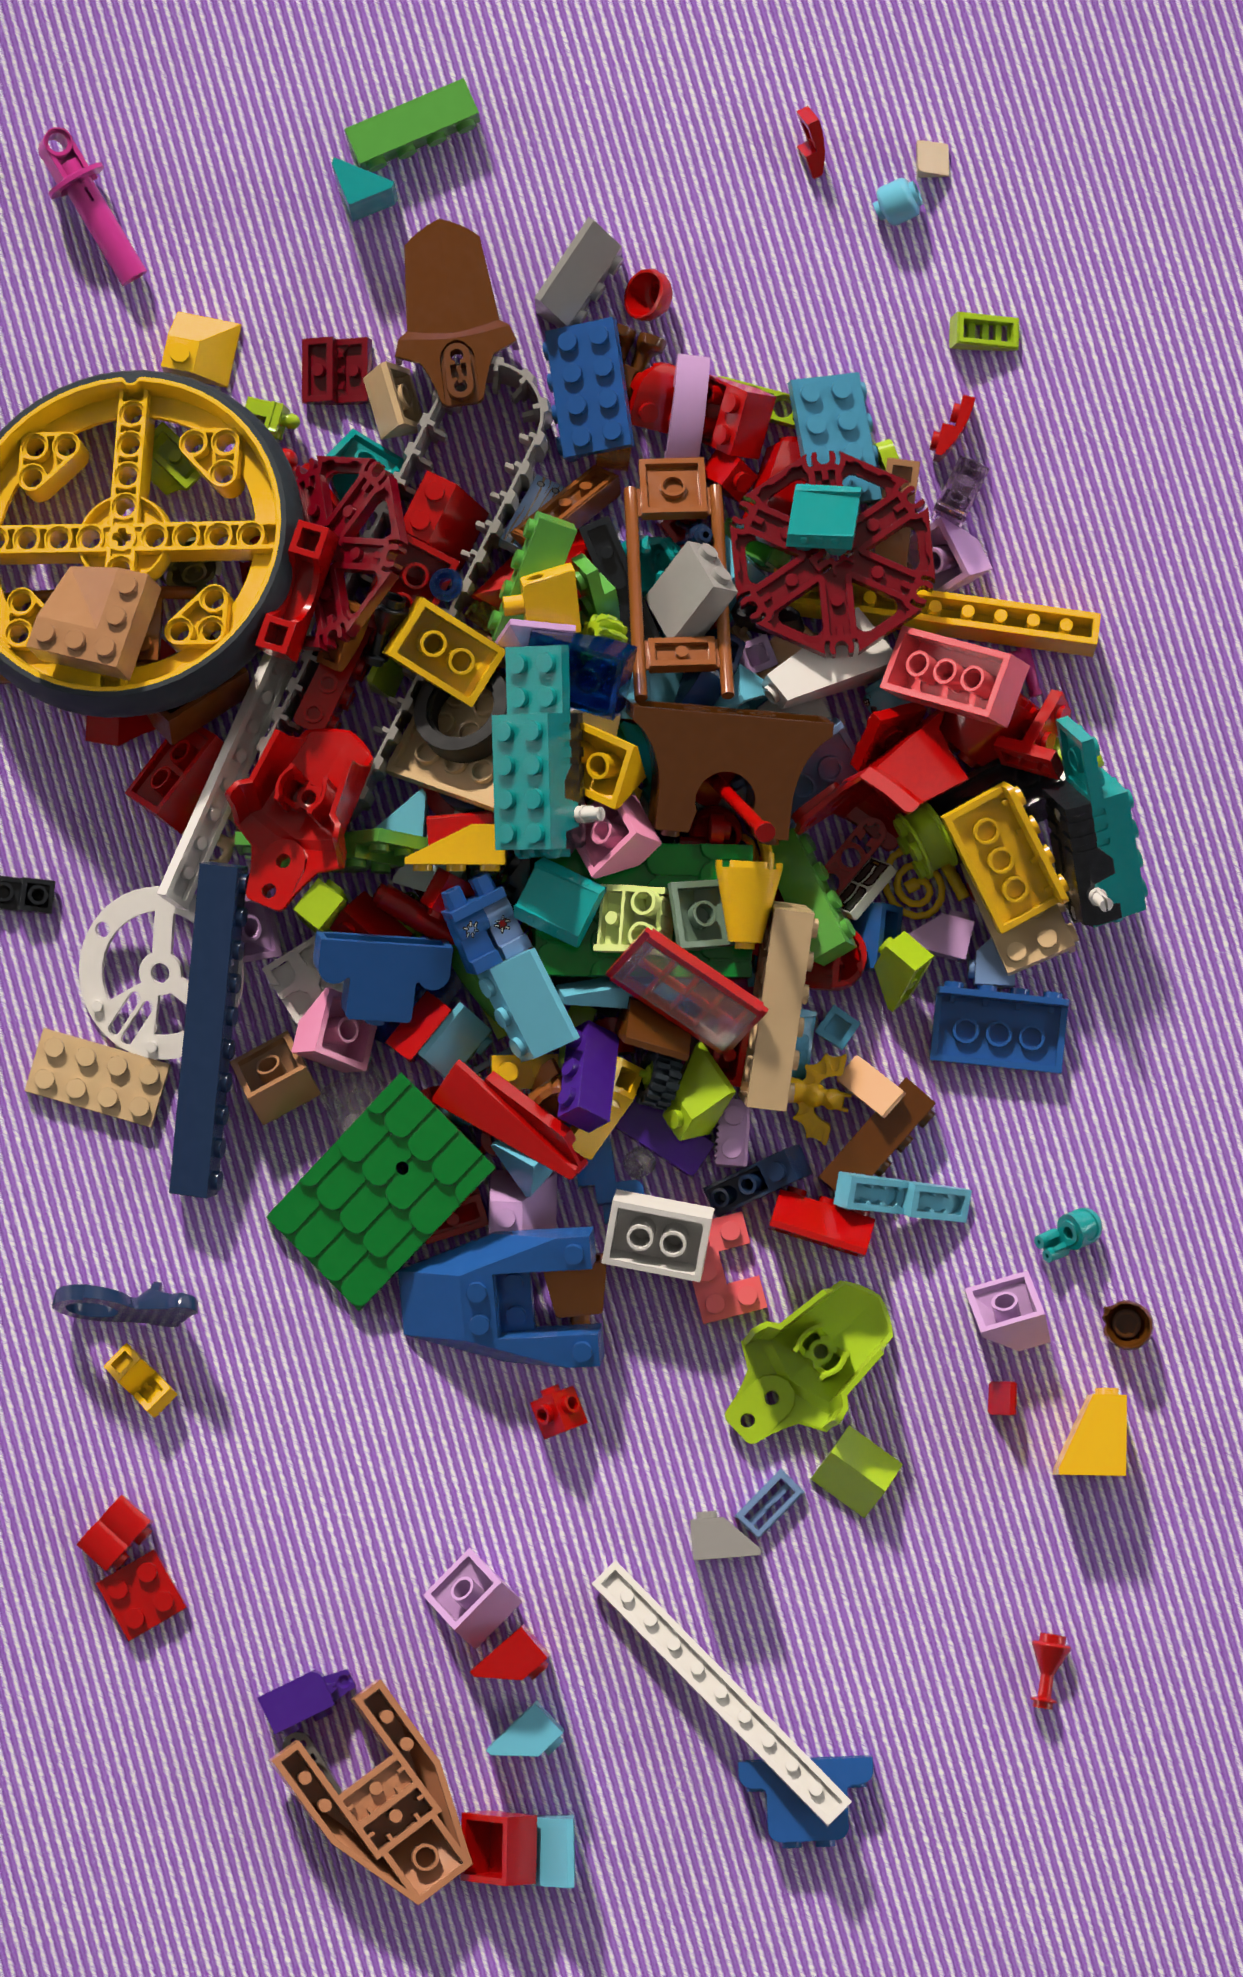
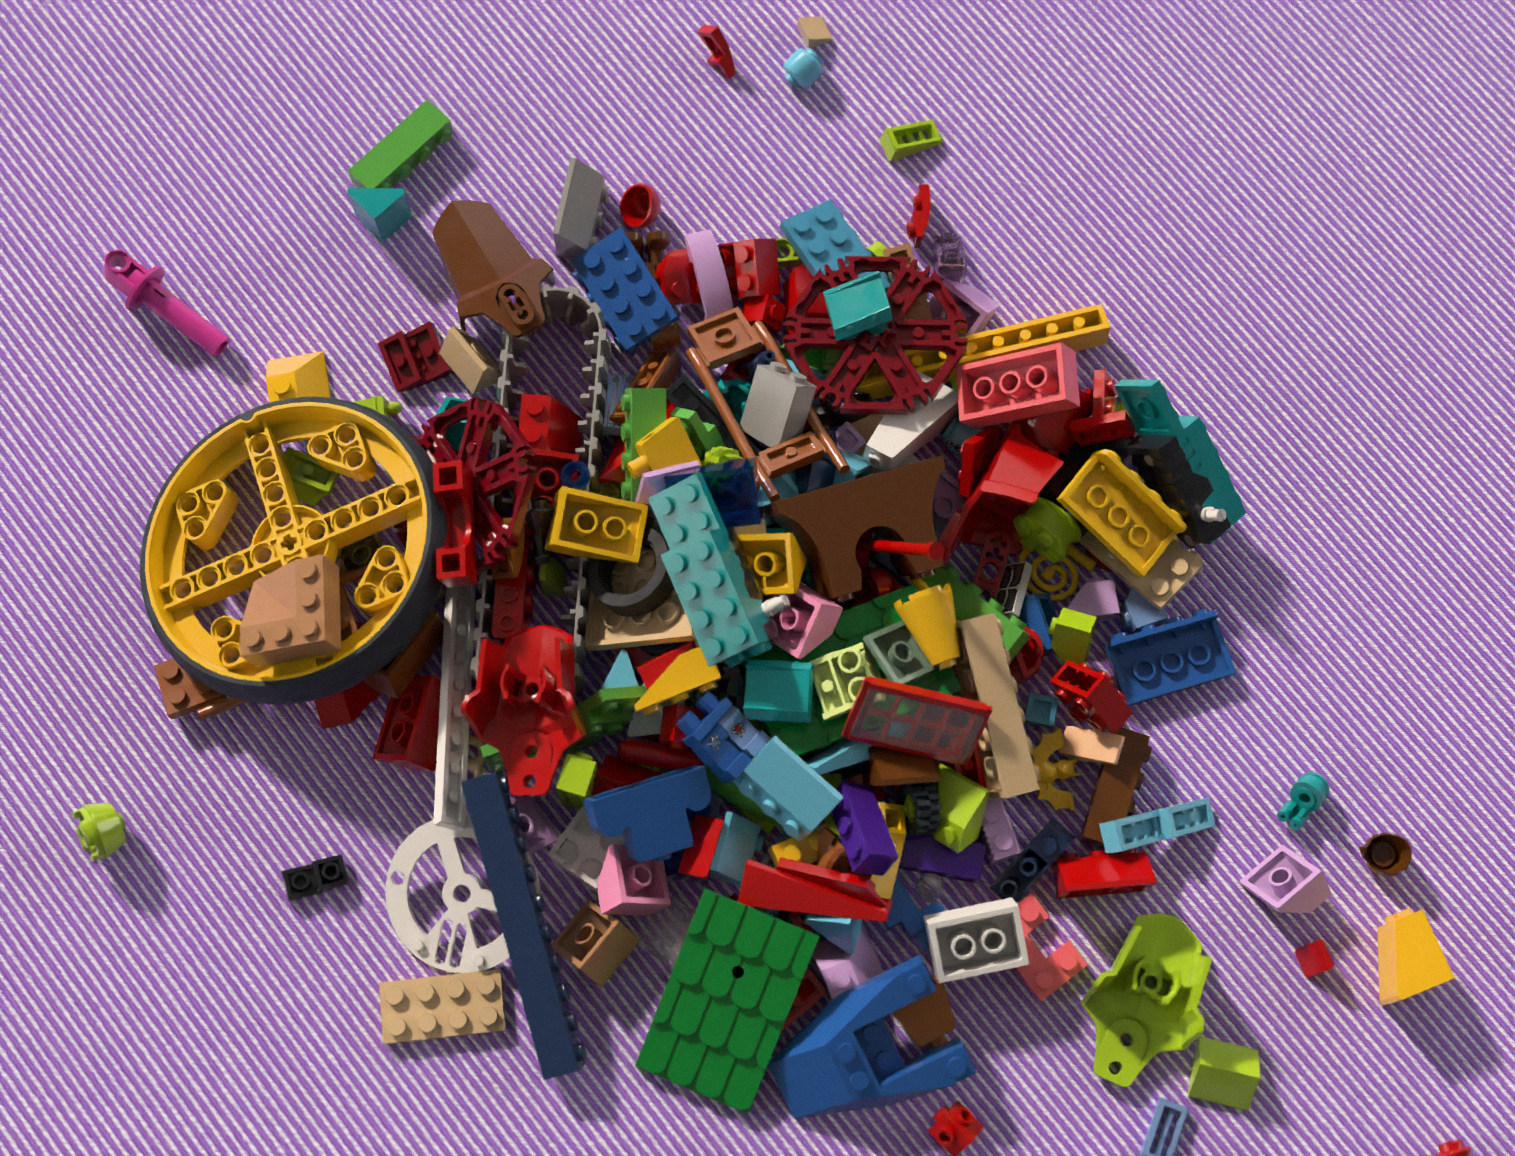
camera: 30 degrees left, 10 degrees down
(890, 1037) = (1091, 697): none -> red brick

